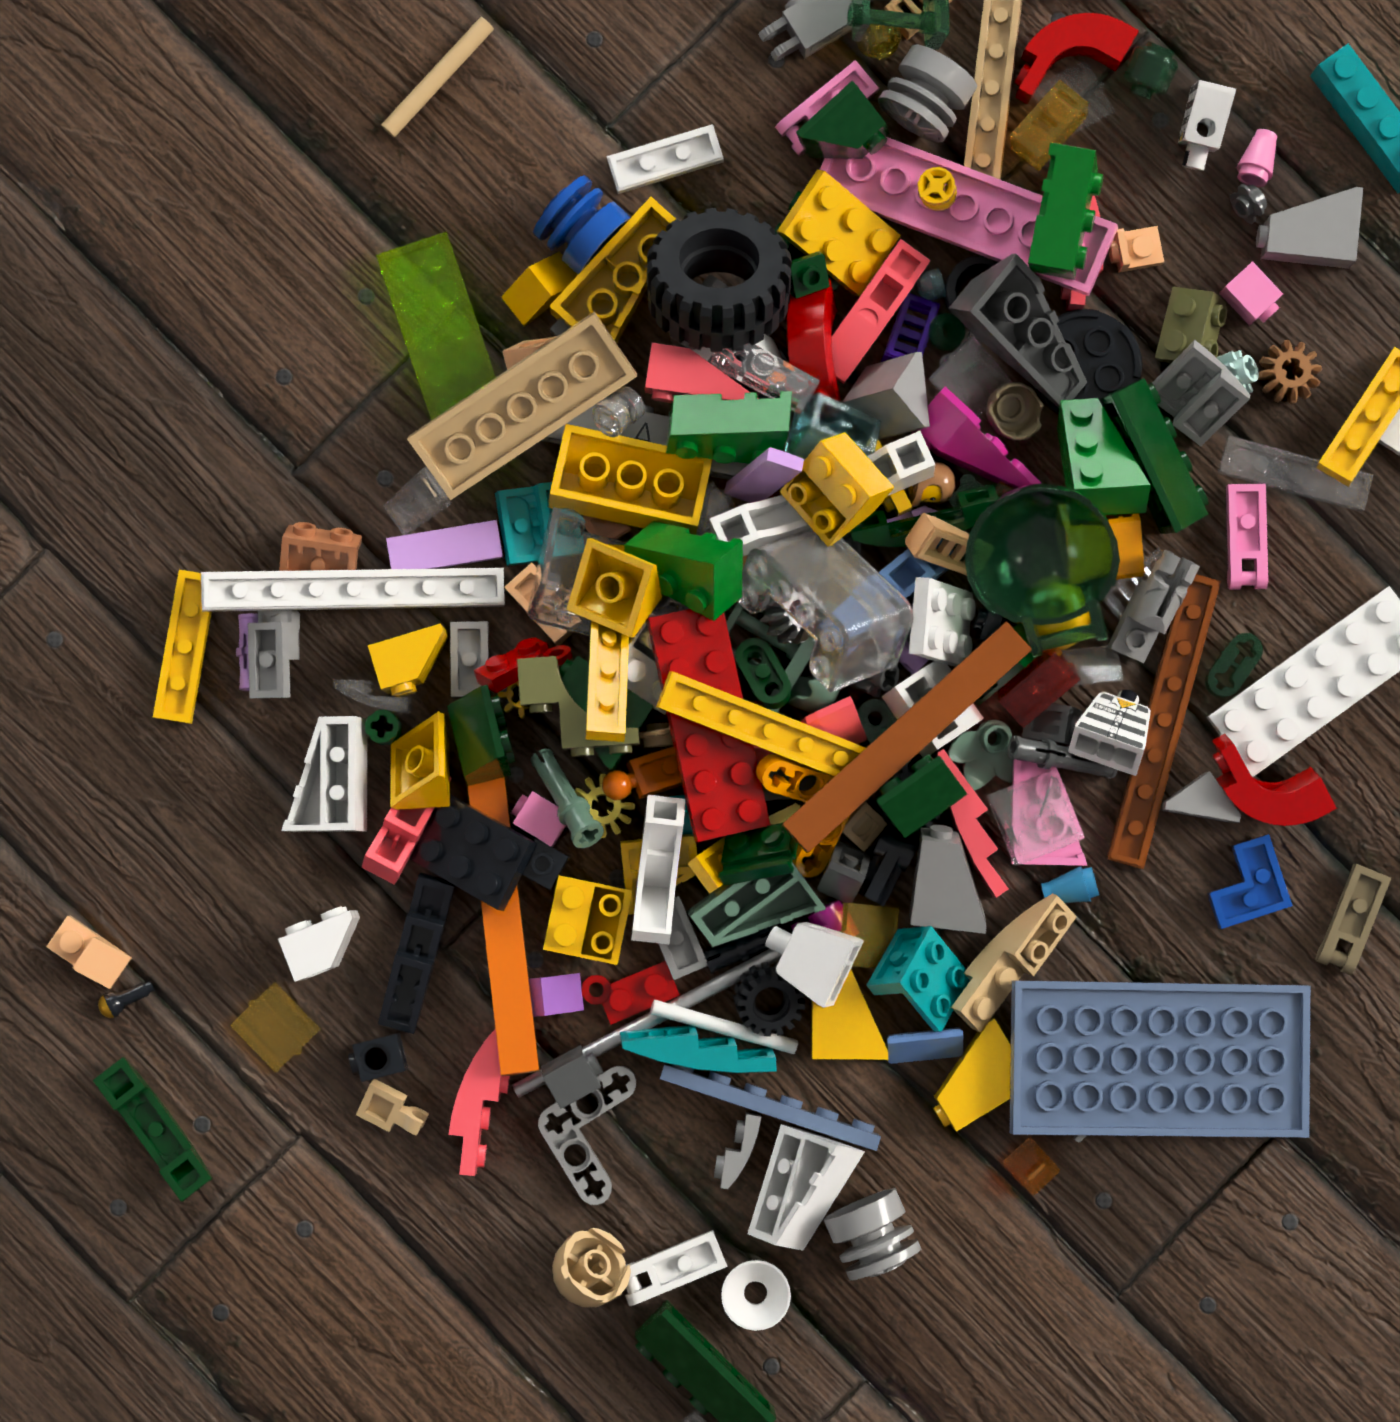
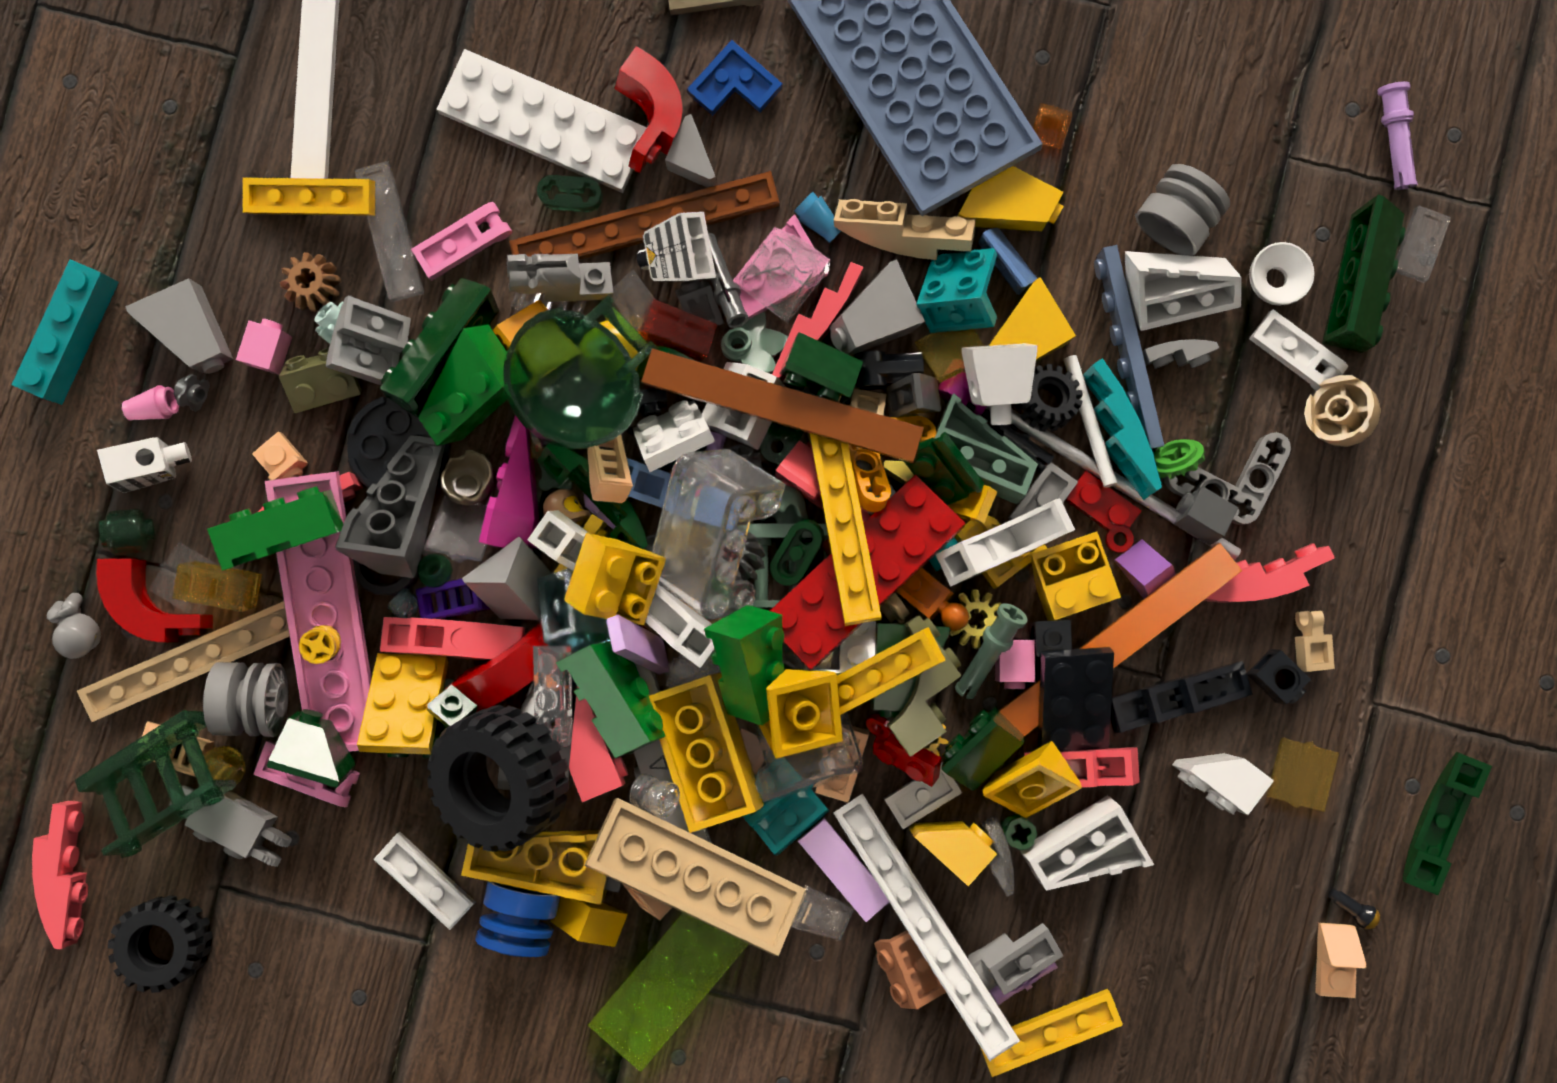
camera: 115 degrees left, 0 degrees up
(640, 1085) = (1178, 457): none -> bright green gear

